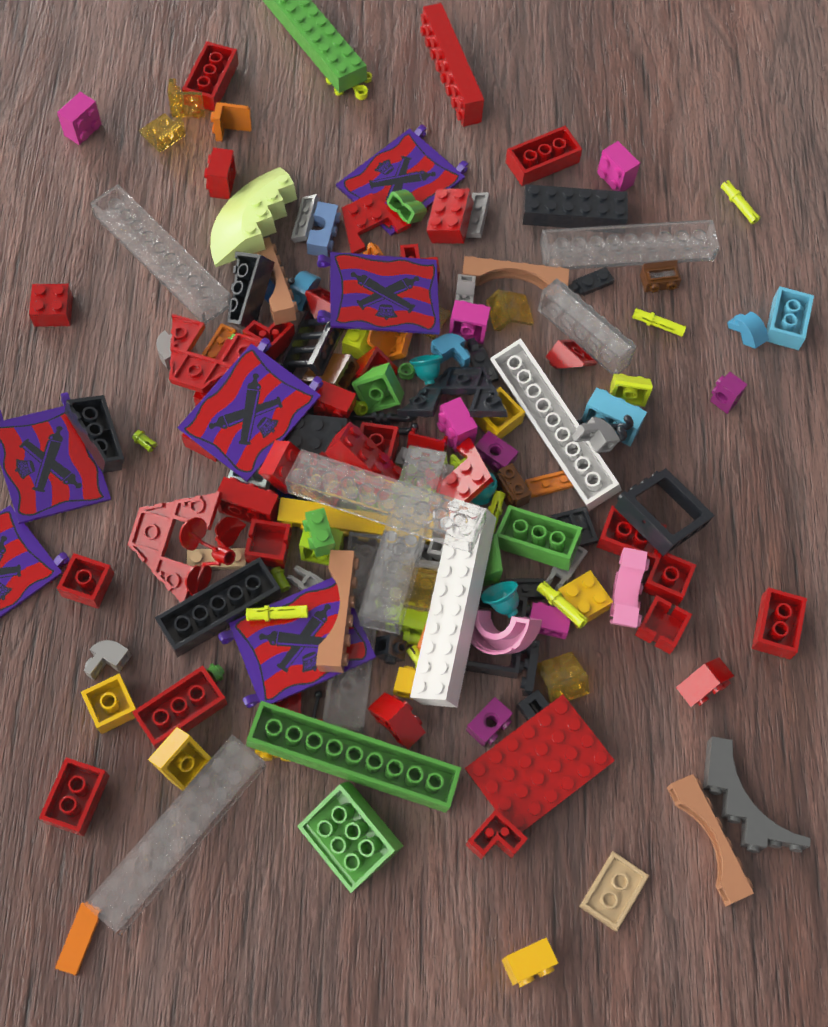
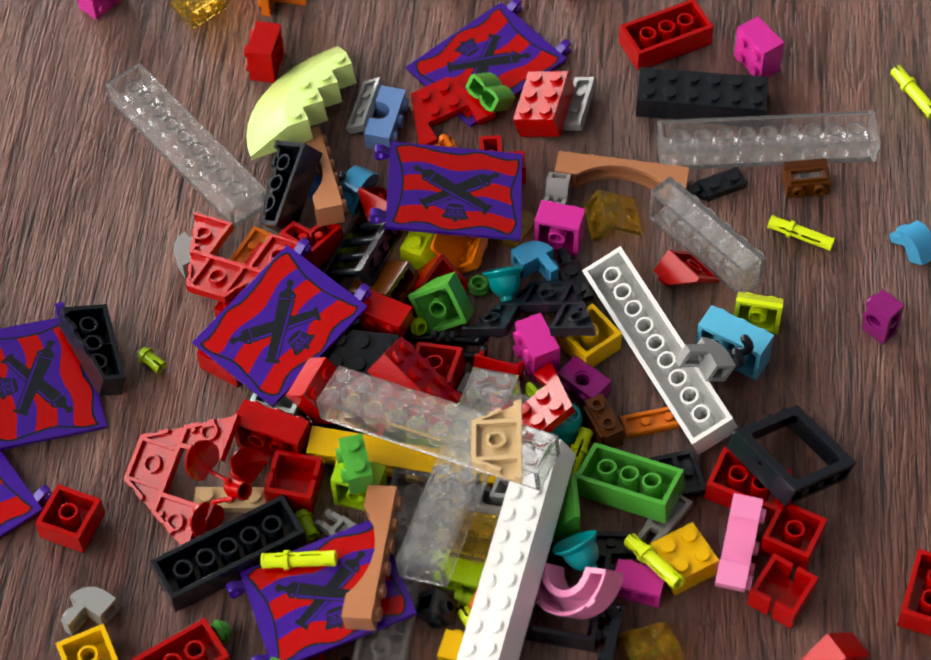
camera: 10 degrees right, 10 degrees down
(51, 305) = (50, 201): red brick -> none
(439, 517) = (498, 443): none -> tan wing

